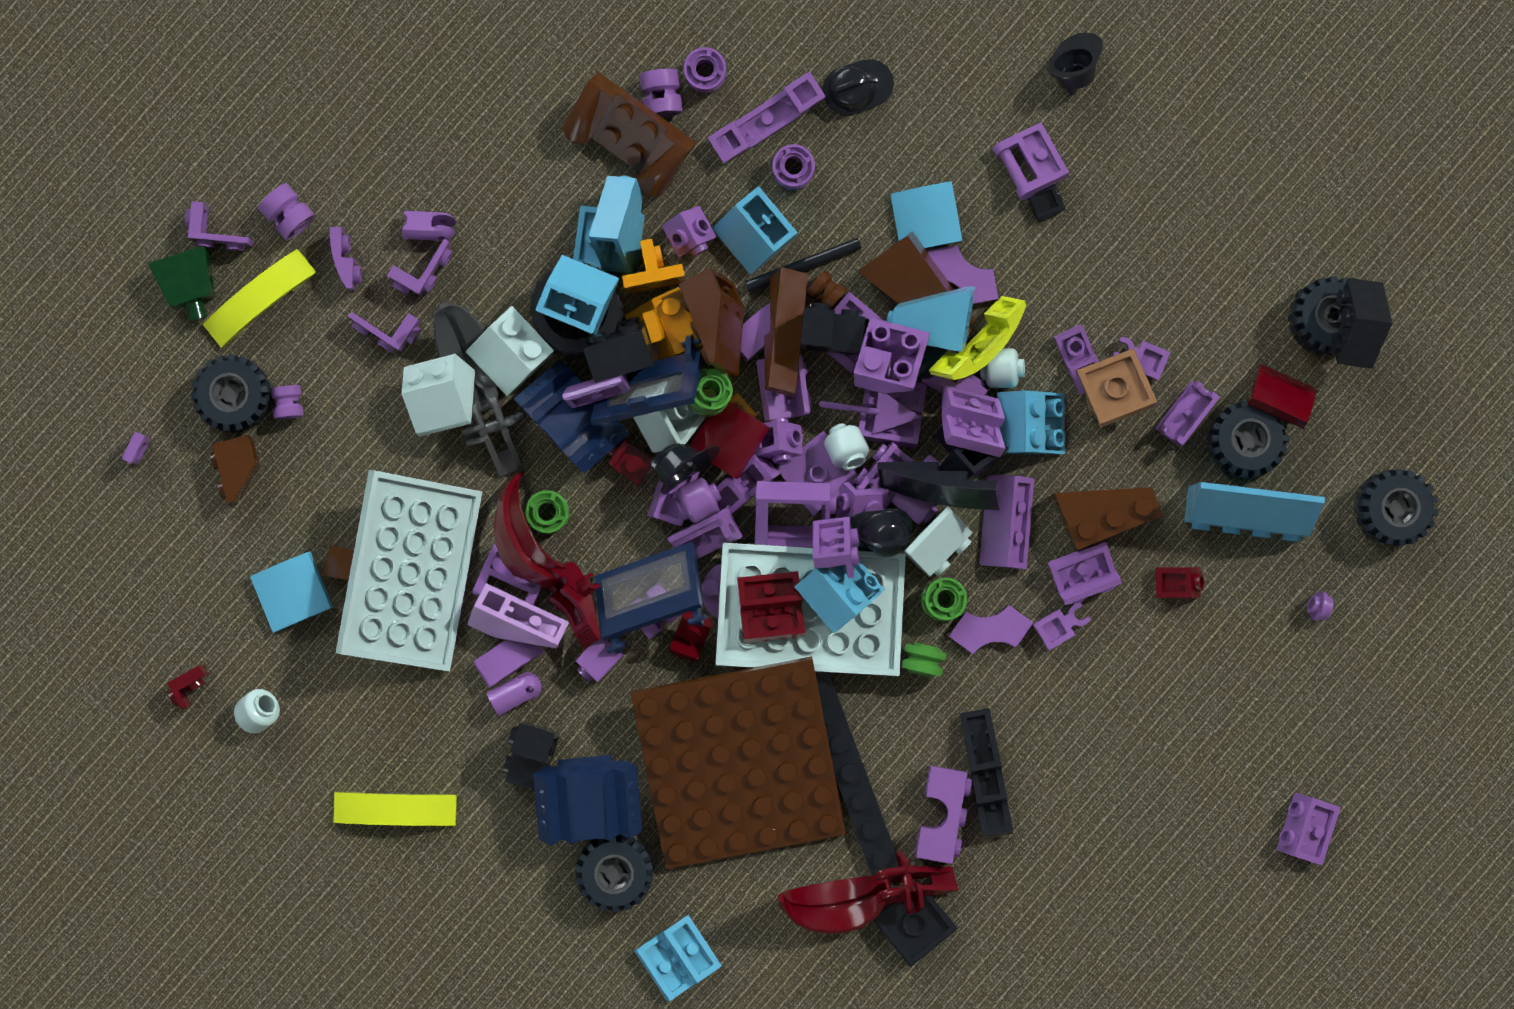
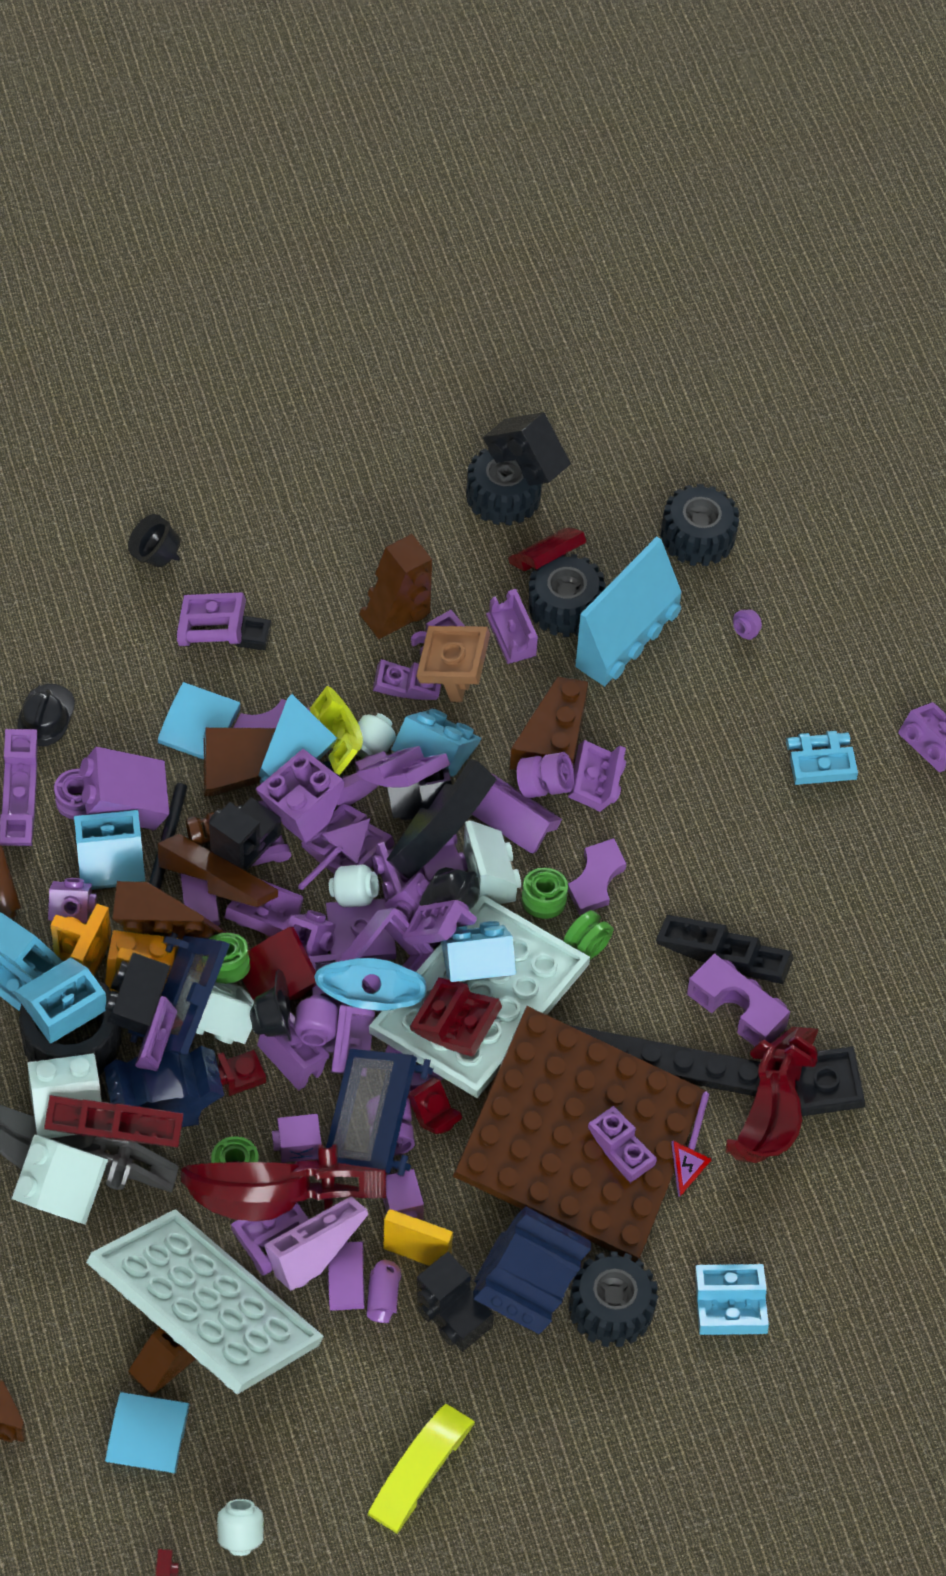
camera: 60 degrees left, 30 degrees down
(502, 410) = (114, 1121): none -> dark red slope
(564, 696) = (415, 1238): none -> yellow tile
(599, 545) = (297, 1138): none -> medium lavender brick
(743, 803) = (618, 1142): none -> medium lavender slope
(761, 546) = (397, 989): none -> medium azure piece
(774, 858) = (688, 1162): none -> piece
(816, 205) = (125, 783): none -> medium lavender brick
(1048, 532) = (545, 775): none -> medium lavender wheel
(1057, 627) = (630, 821): medium lavender plate -> none
(1153, 302) = (401, 588): none -> reddish brown wedge
(1179, 582) = (654, 712): dark red bracket -> none
(1218, 752) = (822, 764): none -> medium azure plate

